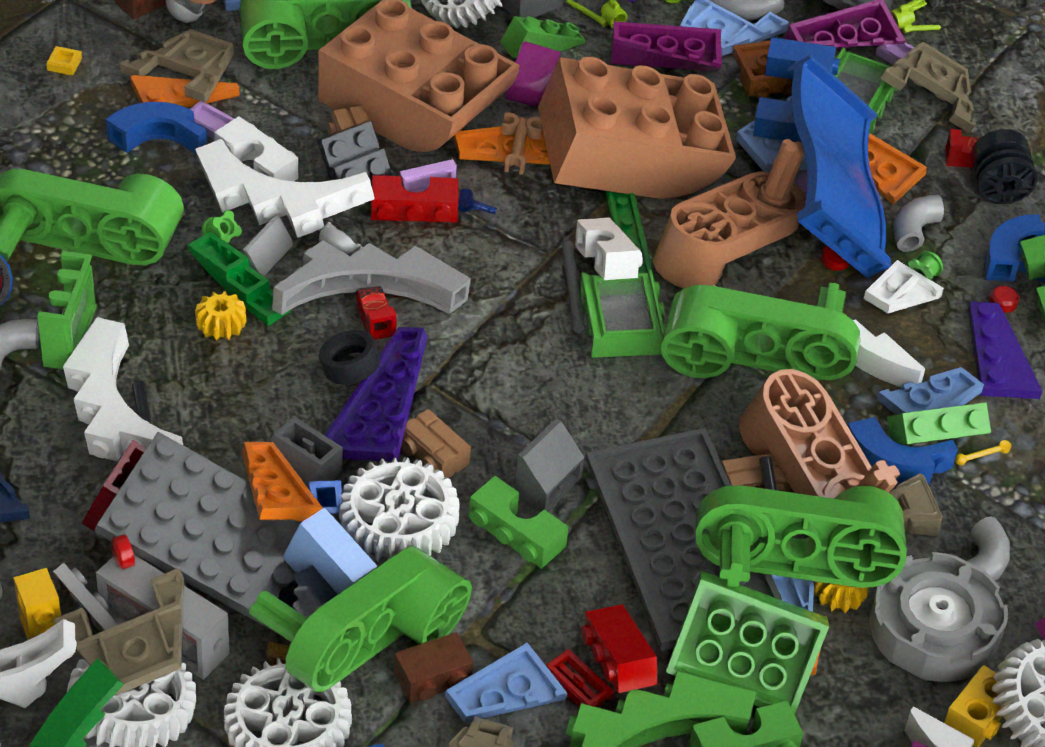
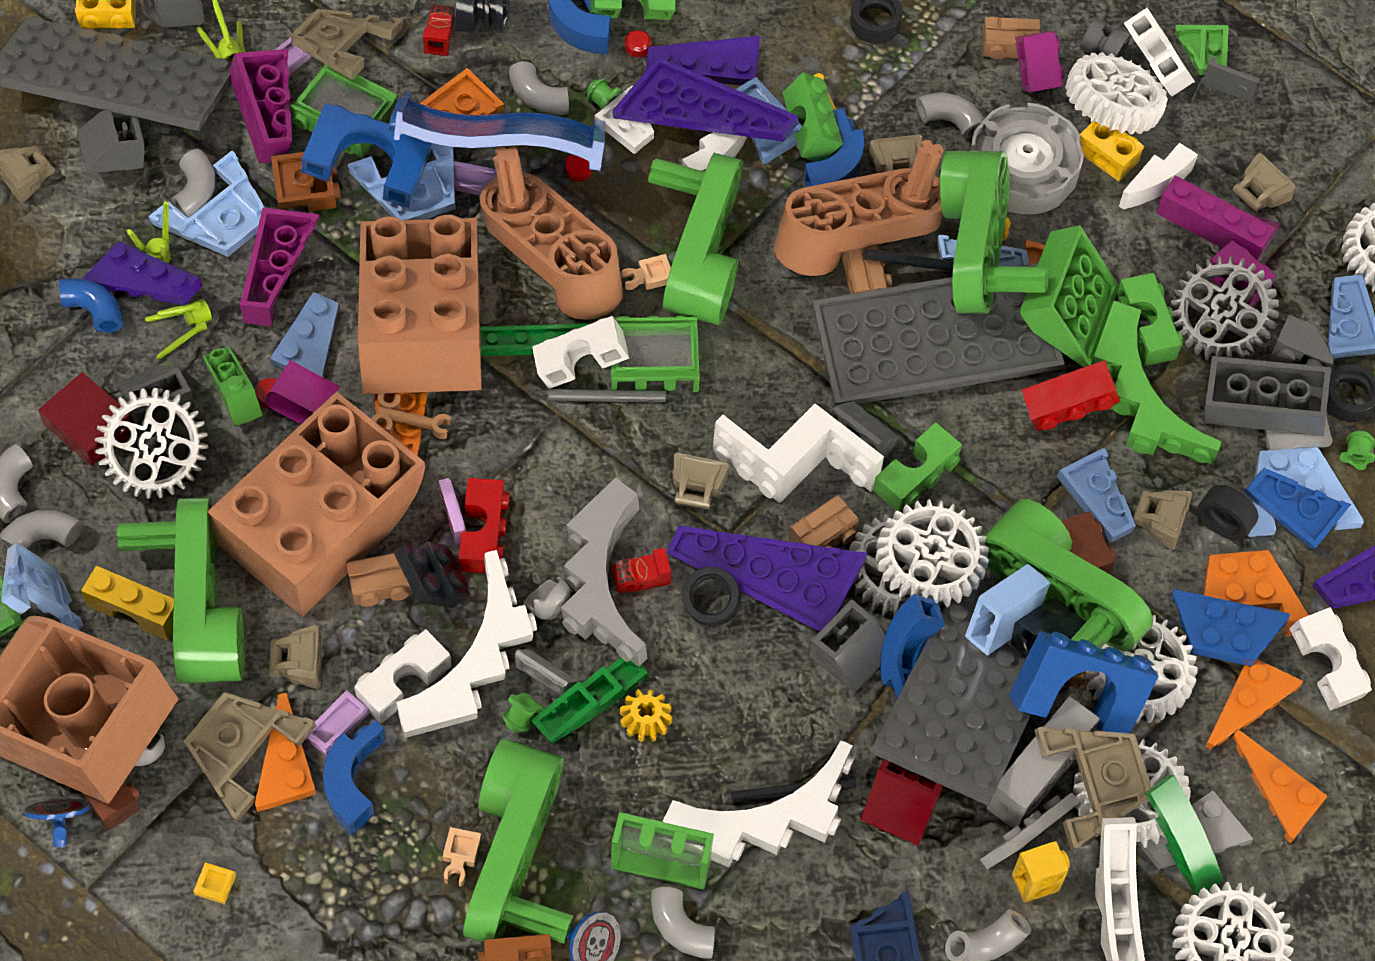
camera: 85 degrees left, 15 degrees up
(122, 552) = (1015, 778): red piece -> none
(246, 652) = (1058, 658): none -> blue arch
(273, 95) = (303, 658): none -> dark tan piece
(276, 485) = (918, 650): orange wing -> none
(467, 203) = (487, 469): clear blue hand -> none
(481, 349) = (698, 476): none -> dark tan piece
(508, 405) = (796, 453): none -> white bracket
(575, 685) = (1099, 444): red tile -> none
(925, 328) = (691, 101): none -> dark purple wing

